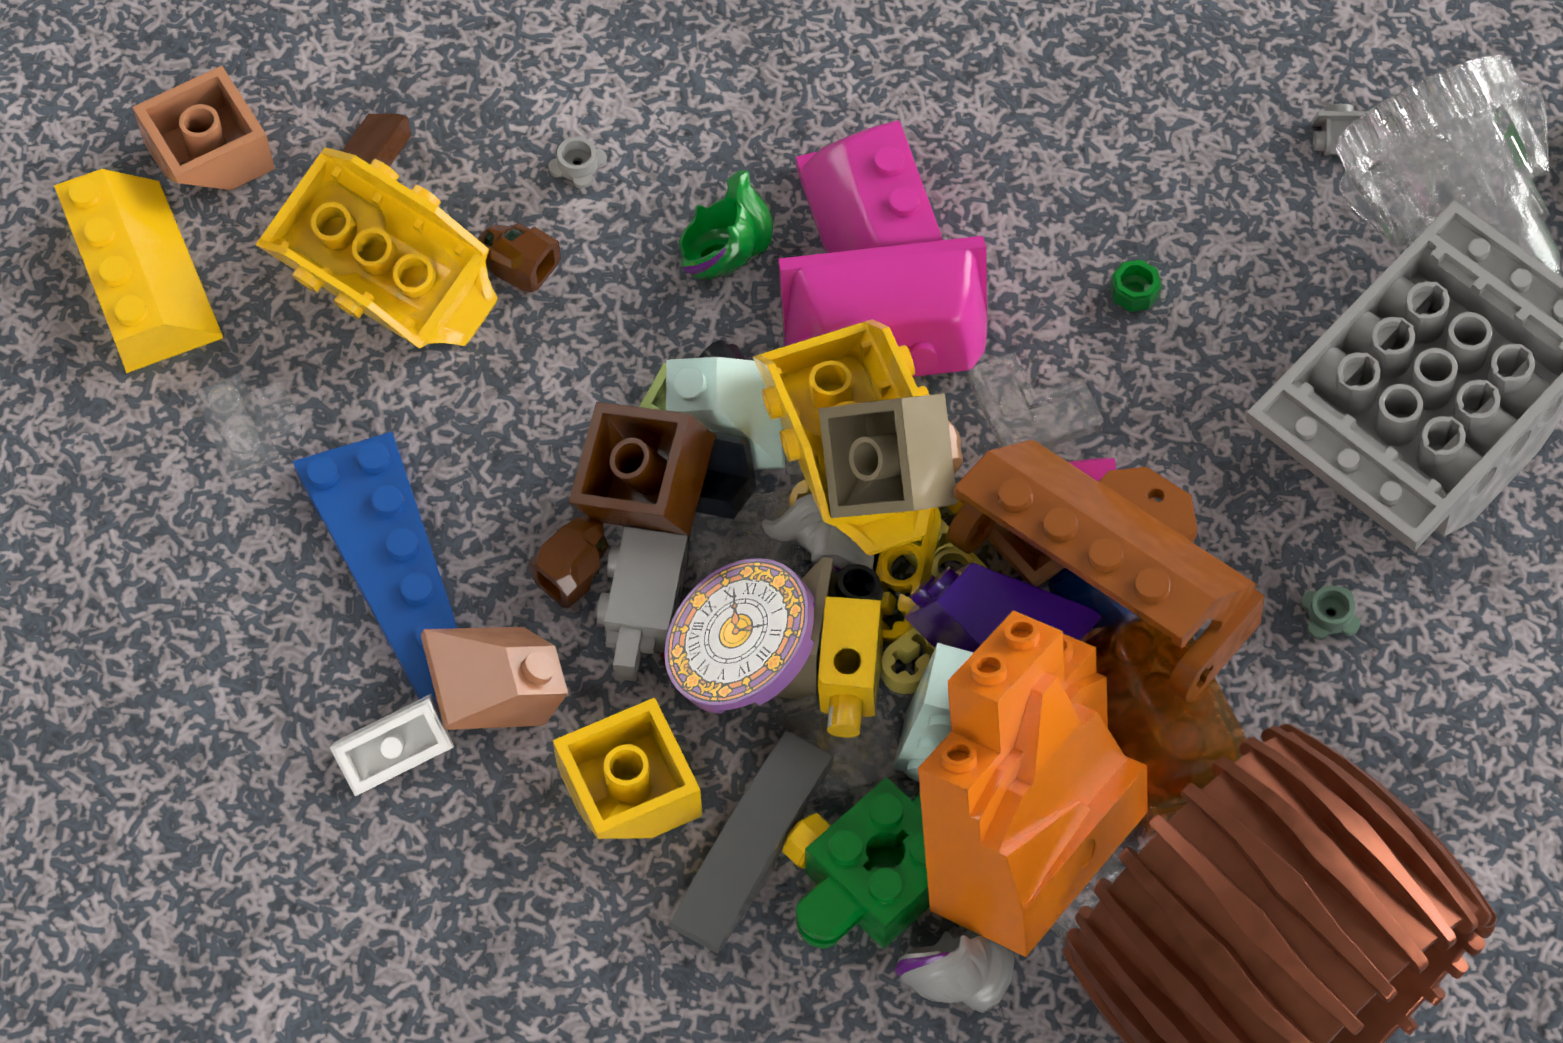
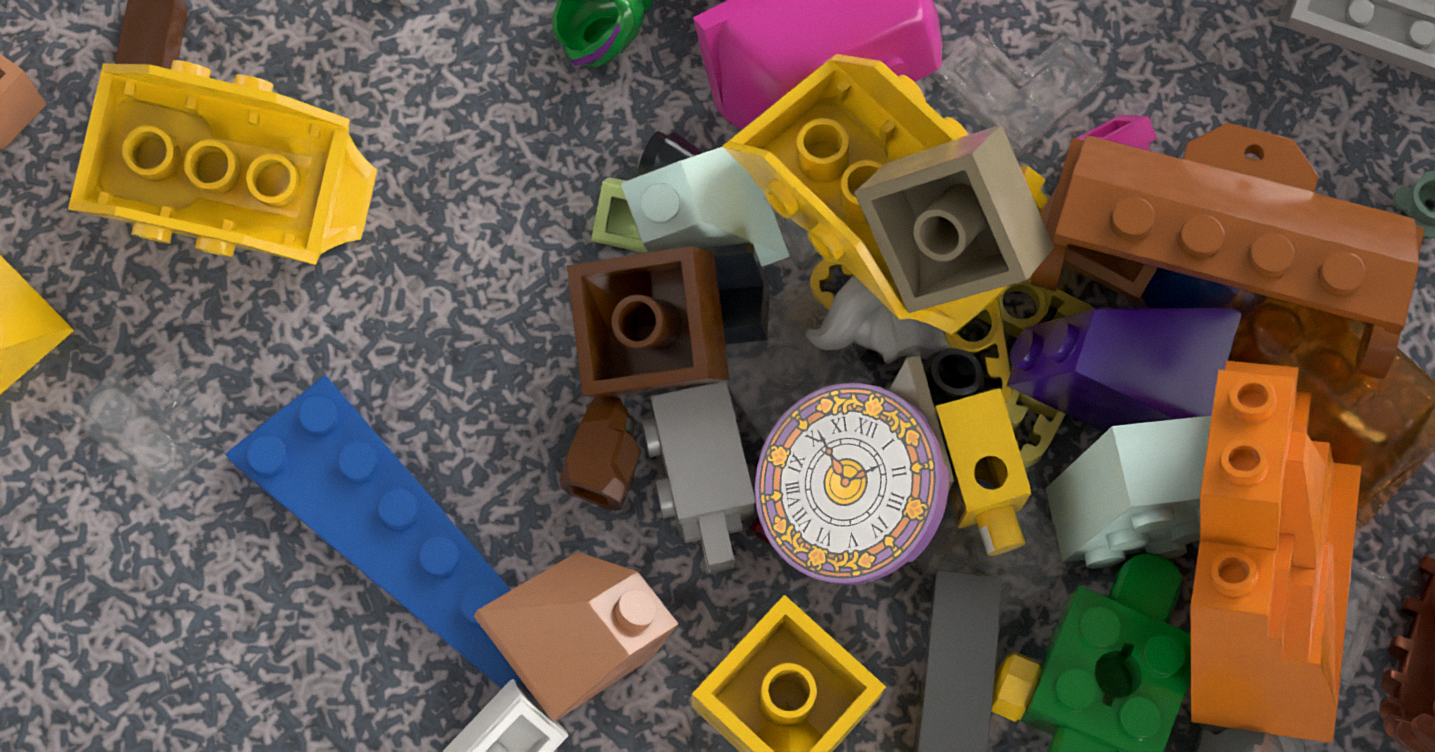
camera: 25 degrees left, 10 degrees up
(520, 255) = (380, 108): reddish brown rock -> none

